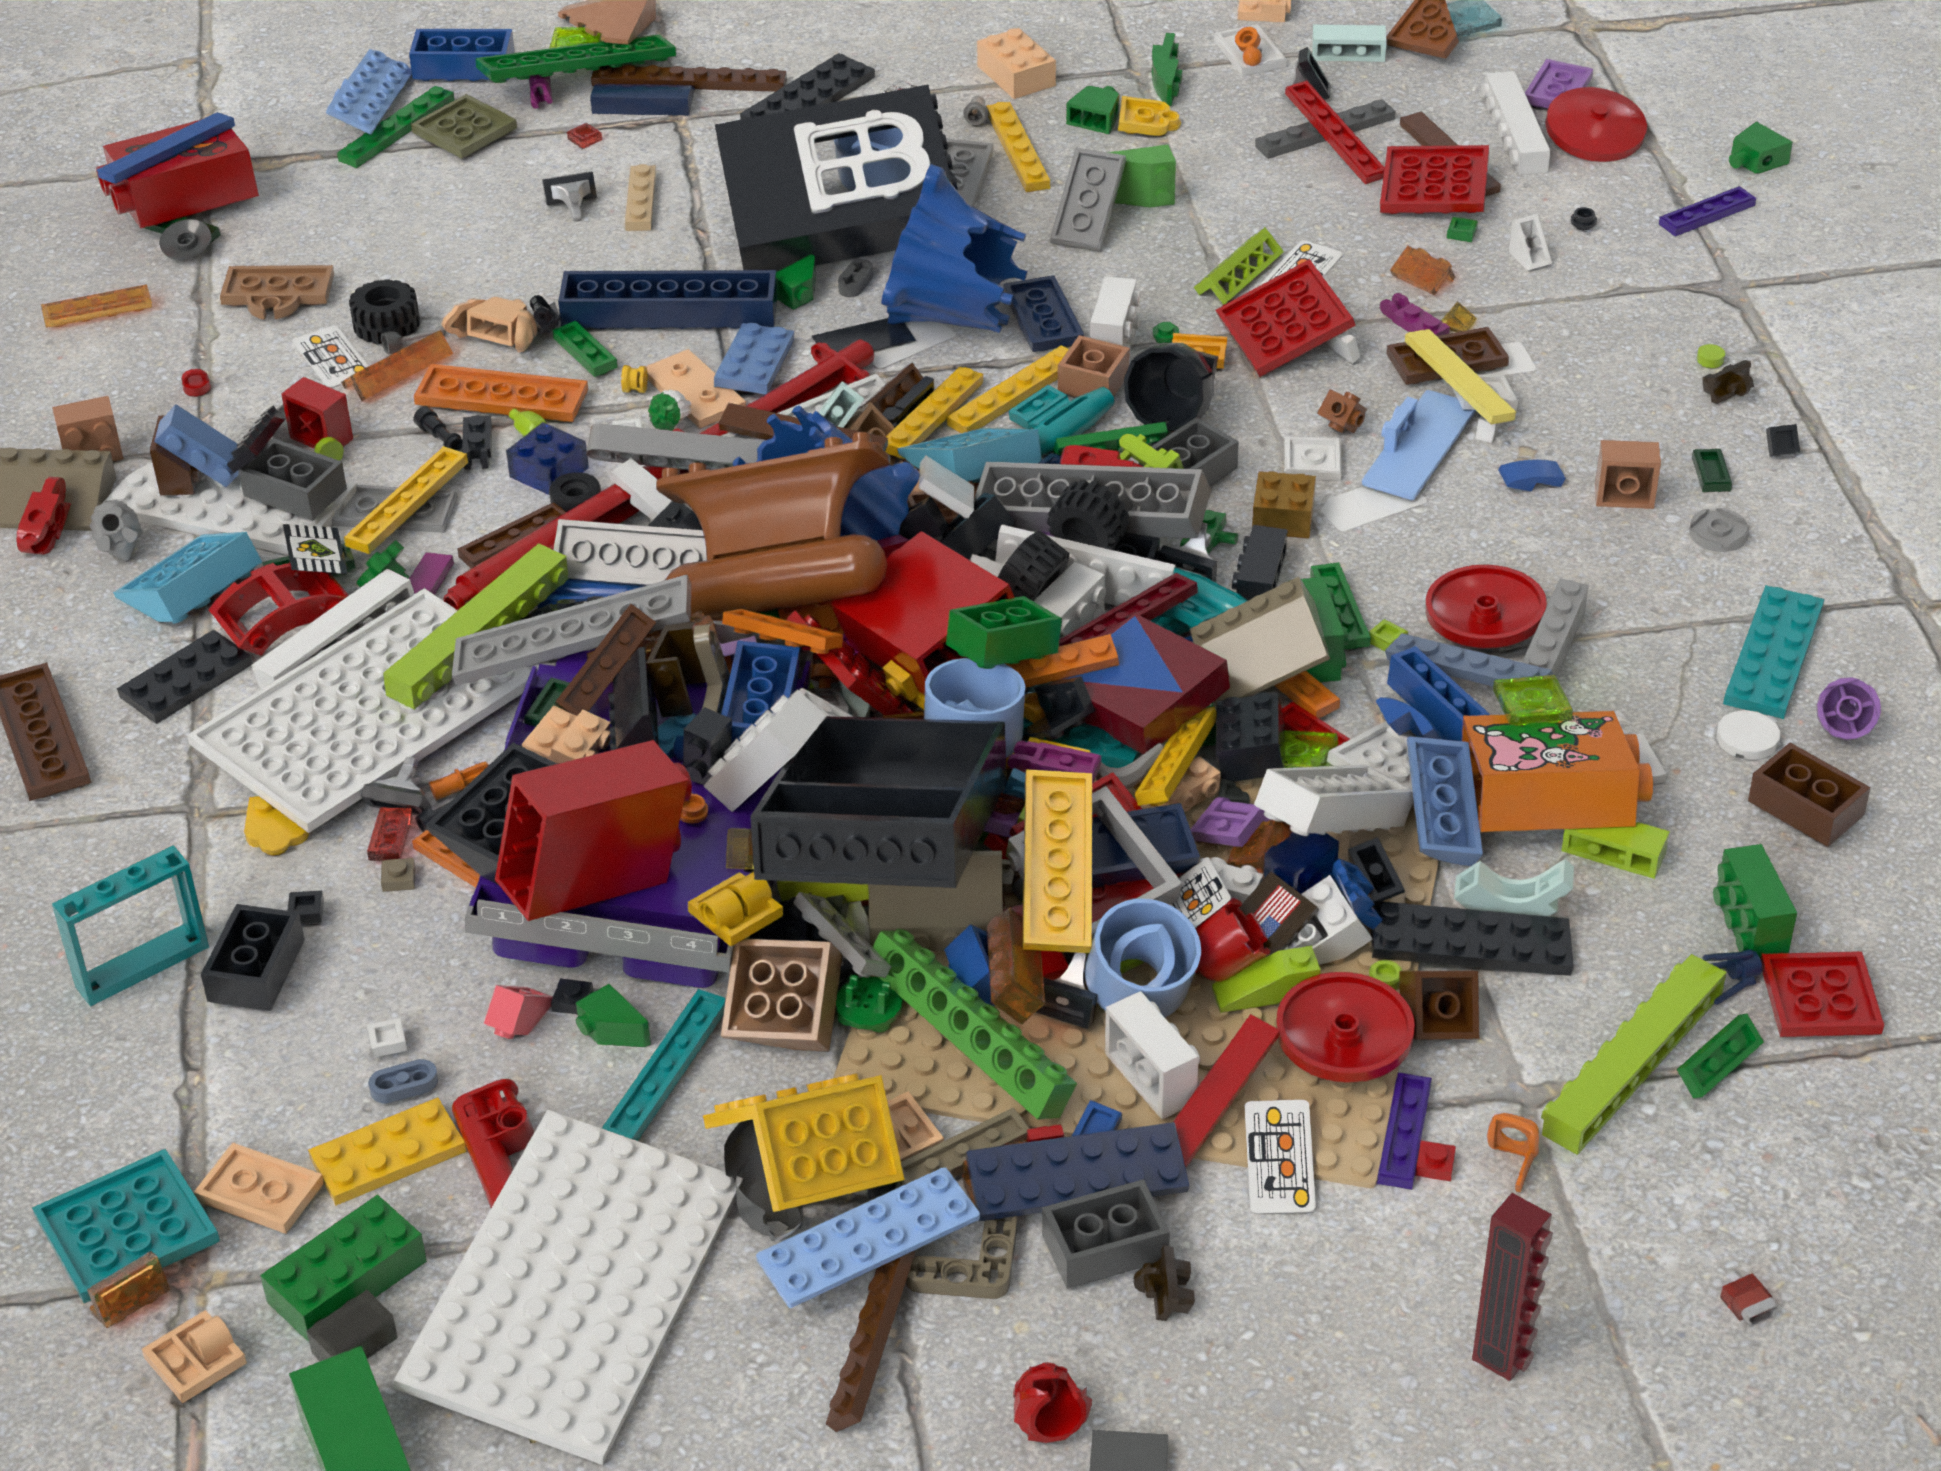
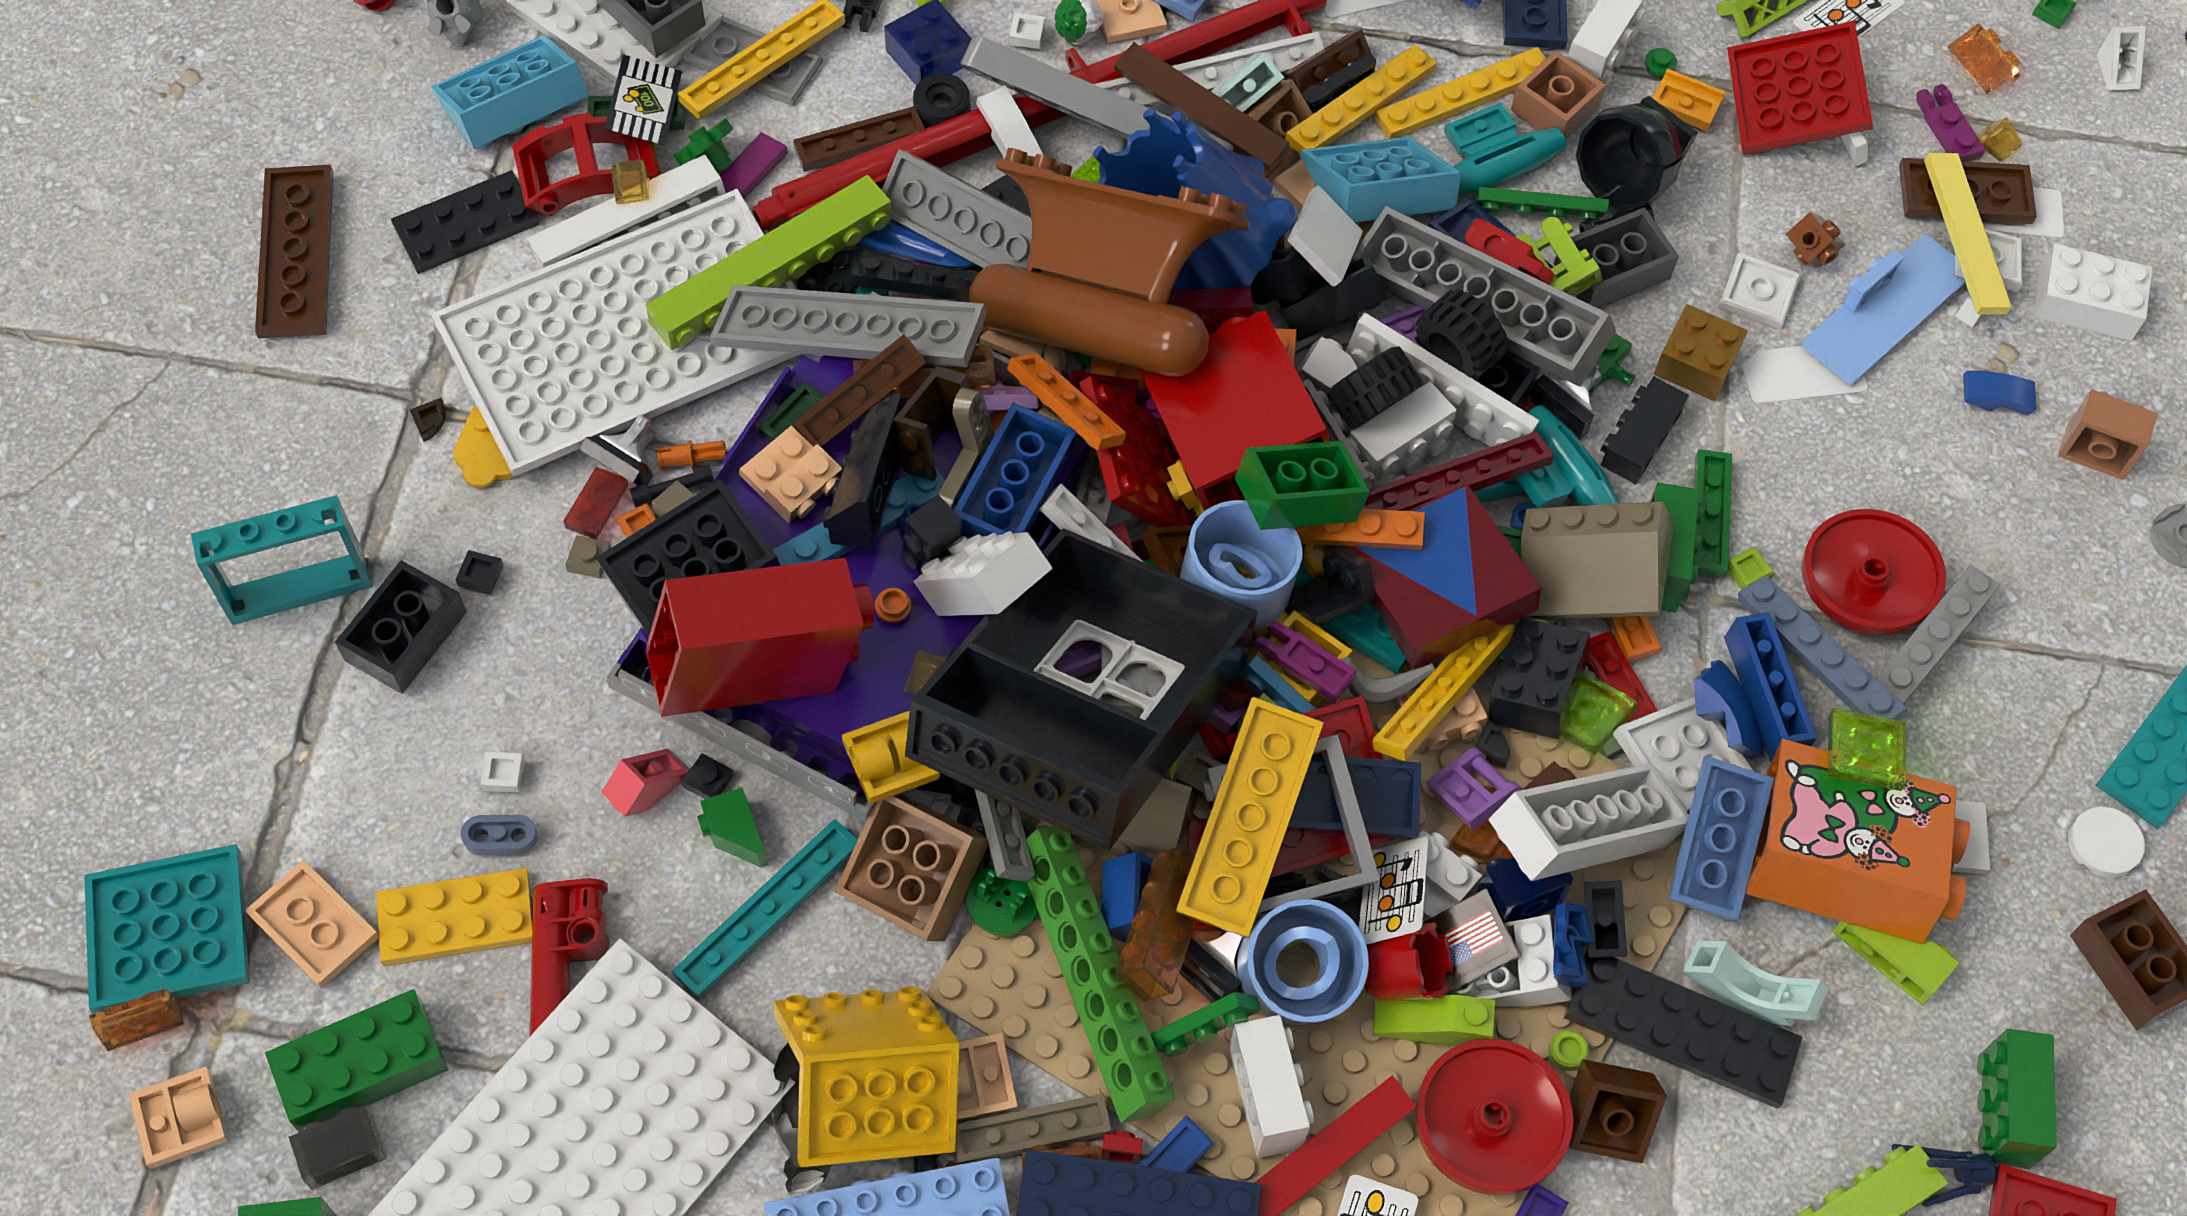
camera: 15 degrees right, 20 degrees up
(210, 817) = (429, 418): none -> dark brown tile
(330, 599) = (630, 181): none -> clear yellow slope
(1080, 1020) = (1205, 1023): none -> green plate
(1574, 393) = (2093, 292): none -> white brick

